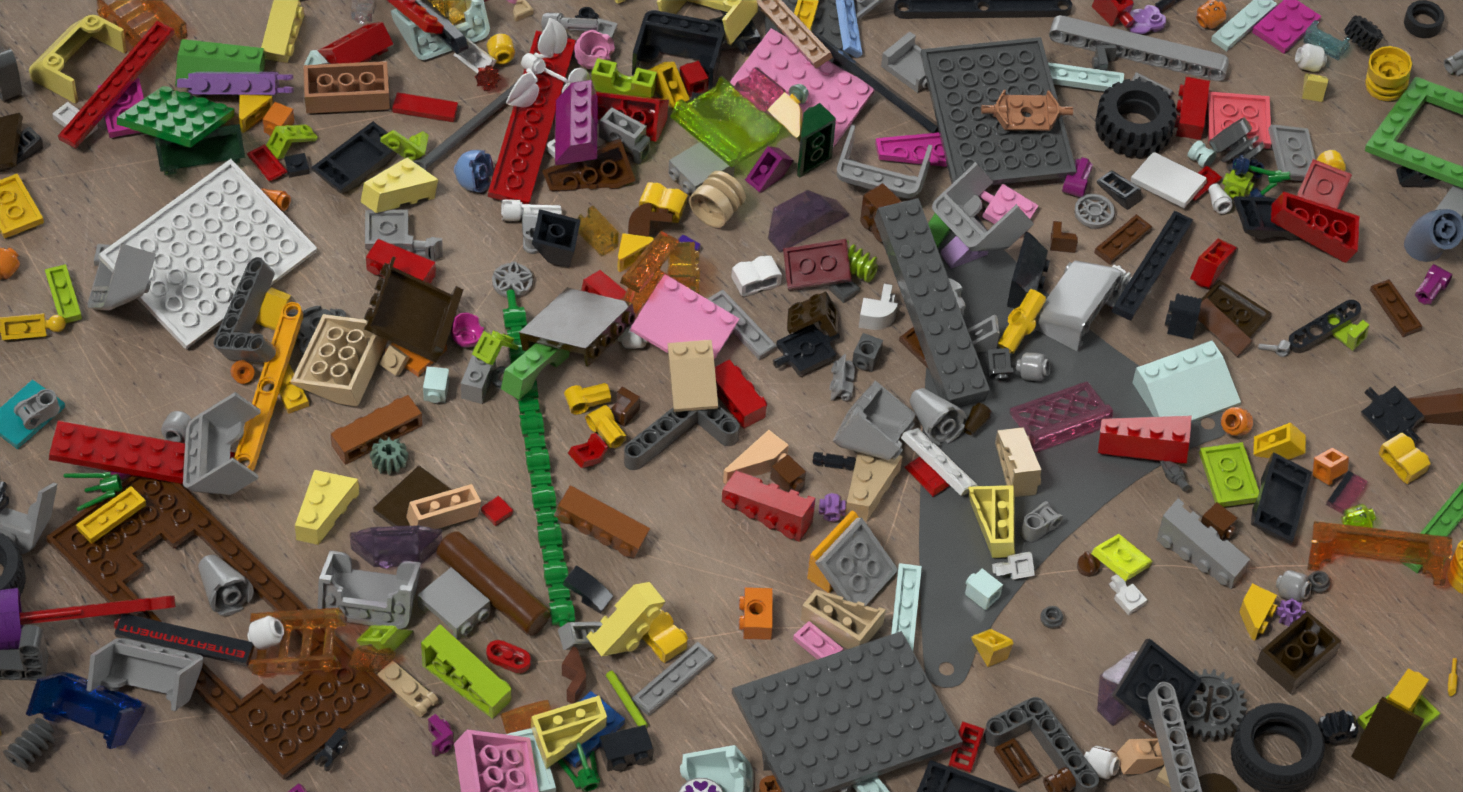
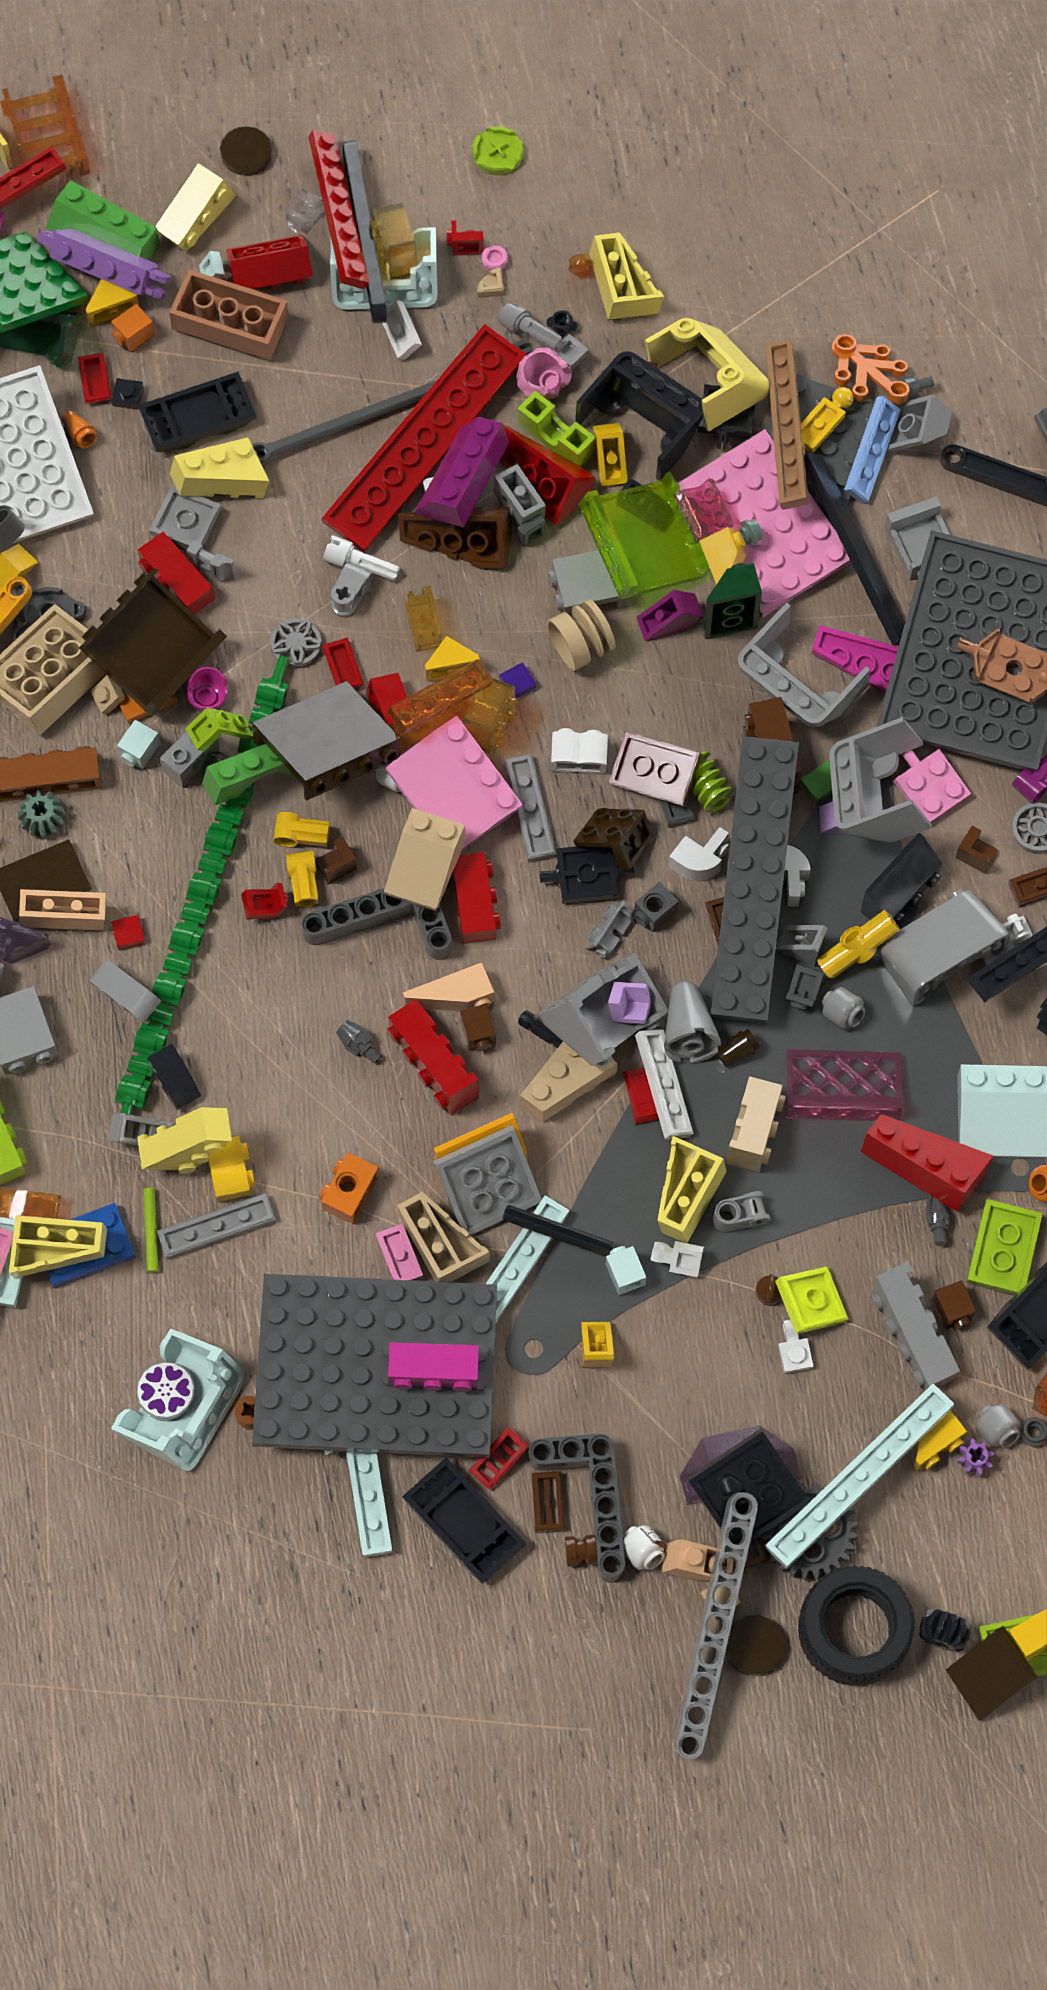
camera: 30 degrees right, 15 degrees up
(285, 135) = (135, 352): lime bracket -> none
(411, 148) = (264, 428): lime bracket -> none
(425, 107) = (311, 373): red tile -> none
(474, 170) = (320, 483): medium blue cylinder -> none
(488, 77) = (400, 364): clear red gear -> none
(494, 583) = (72, 1024): reddish brown cylinder -> none
(501, 48) = (435, 330): yellow head -> none
(510, 655) = (47, 1121): red plate -> none
(520, 545) = (124, 990): none -> light grey beam
(551, 41) = (471, 356): white plant -> none
(553, 279) = (342, 663): none -> red tile
(556, 237) = (365, 609): black slope -> none
(573, 669) = (110, 1166): copper slope -> none
(587, 778) = (56, 1307): green plant -> none
(601, 522) = (230, 1000): dark orange brick -> none
(626, 748) = (116, 1291): black brick -> none
(641, 219) = (481, 625): reddish brown brick -> none
(665, 198) = (520, 610): yellow brick -> none
(694, 78) = (643, 457): red brick -> none
(706, 517) = (357, 1040): none -> dark grey piece
(802, 218) = (678, 696): clear purple wedge -> none
(832, 507) = (505, 1090): medium lavender gear -> none
(888, 414) = (629, 1002): none -> lavender panel
(892, 695) = (433, 1366): none -> dark pink brick
(922, 580) = (557, 1230): none -> black axle
(1051, 611) = (693, 1331): dark grey plate -> none
(1225, 650) = (859, 1476): none -> light aqua plate
(1298, 652) = (953, 1514): dark brown brick -> none

